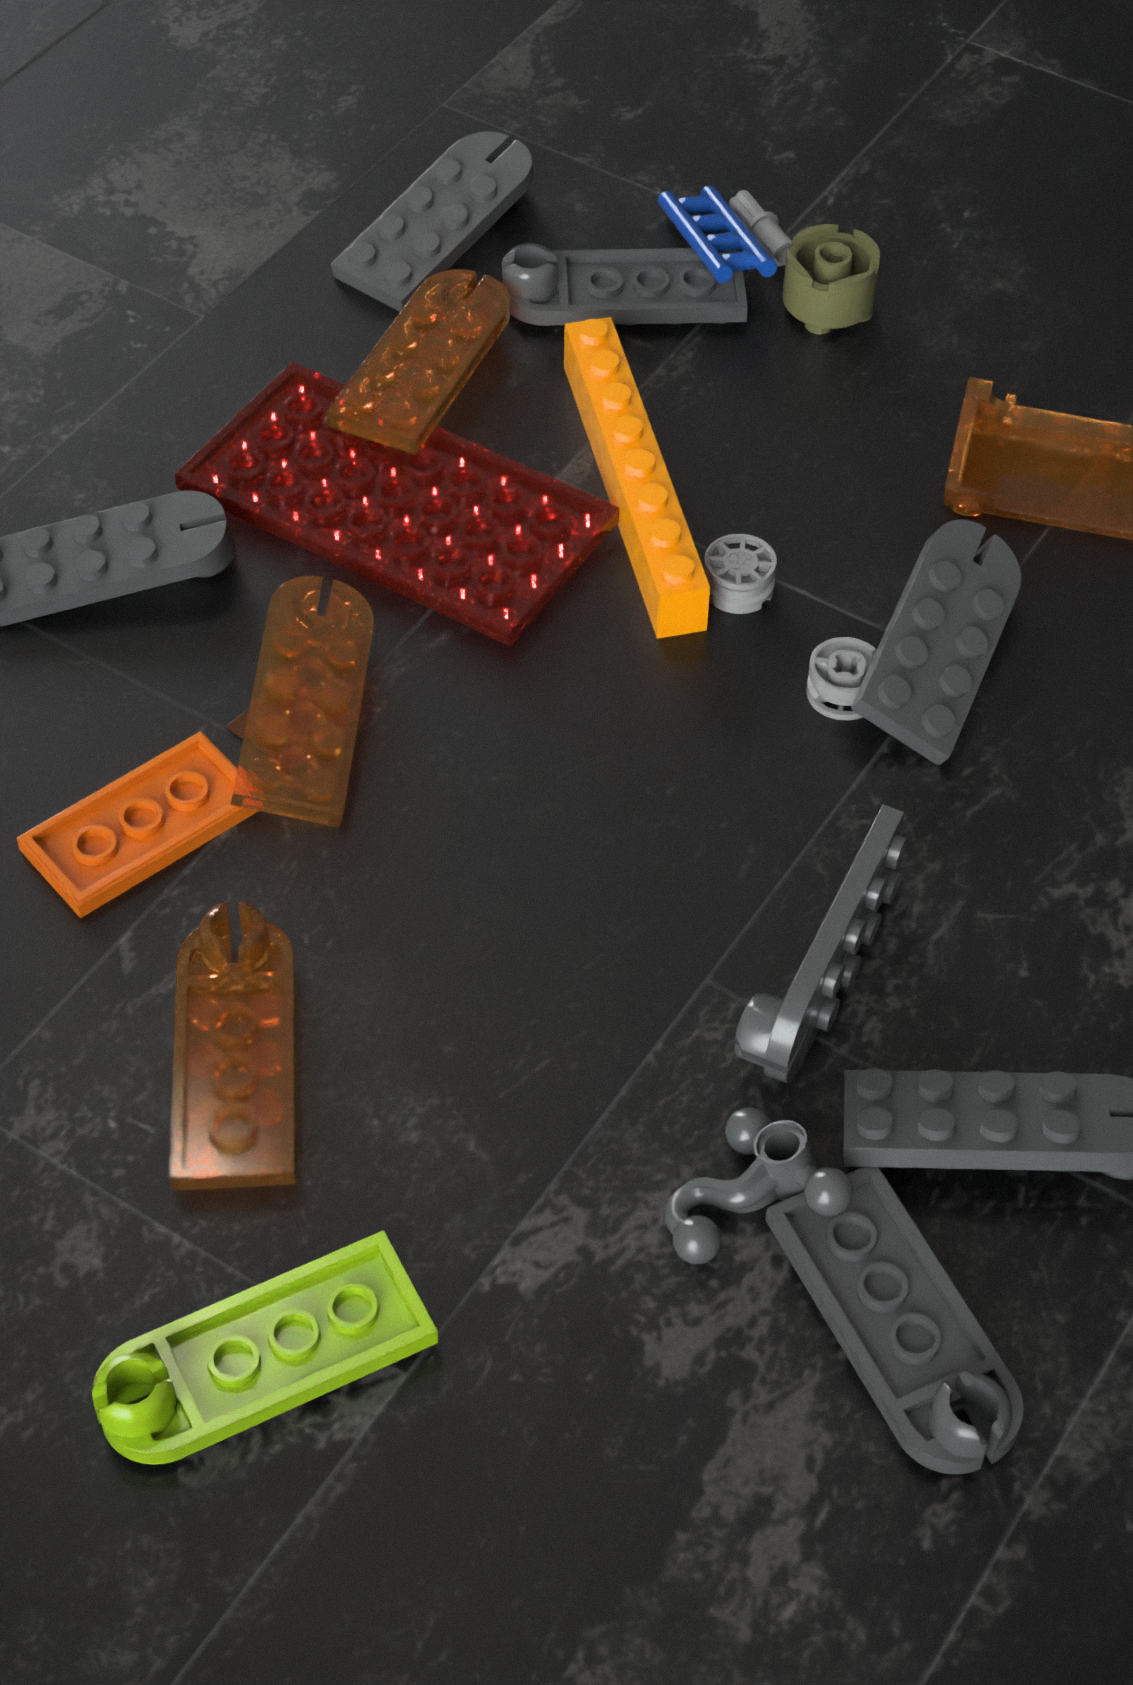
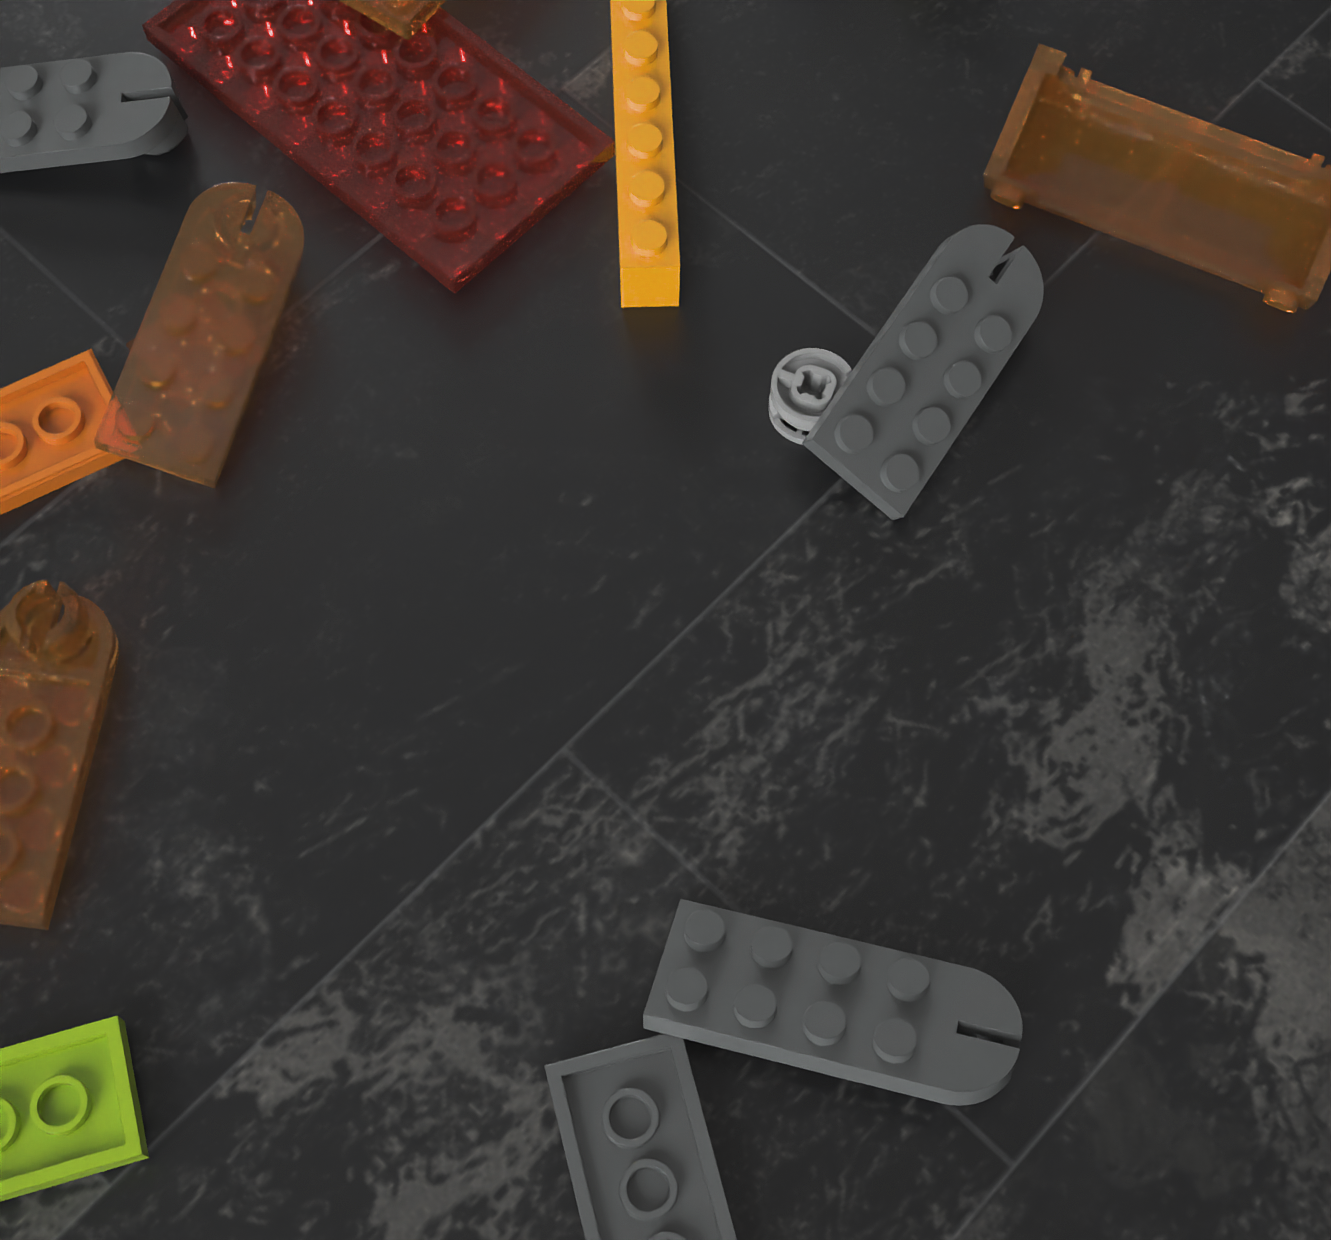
camera: 10 degrees right, 15 degrees up
(739, 576) = (728, 246): light grey wheel -> none
(781, 1031) = (611, 850): dark grey plate -> none
(781, 1170) = (553, 960): dark grey piece -> none

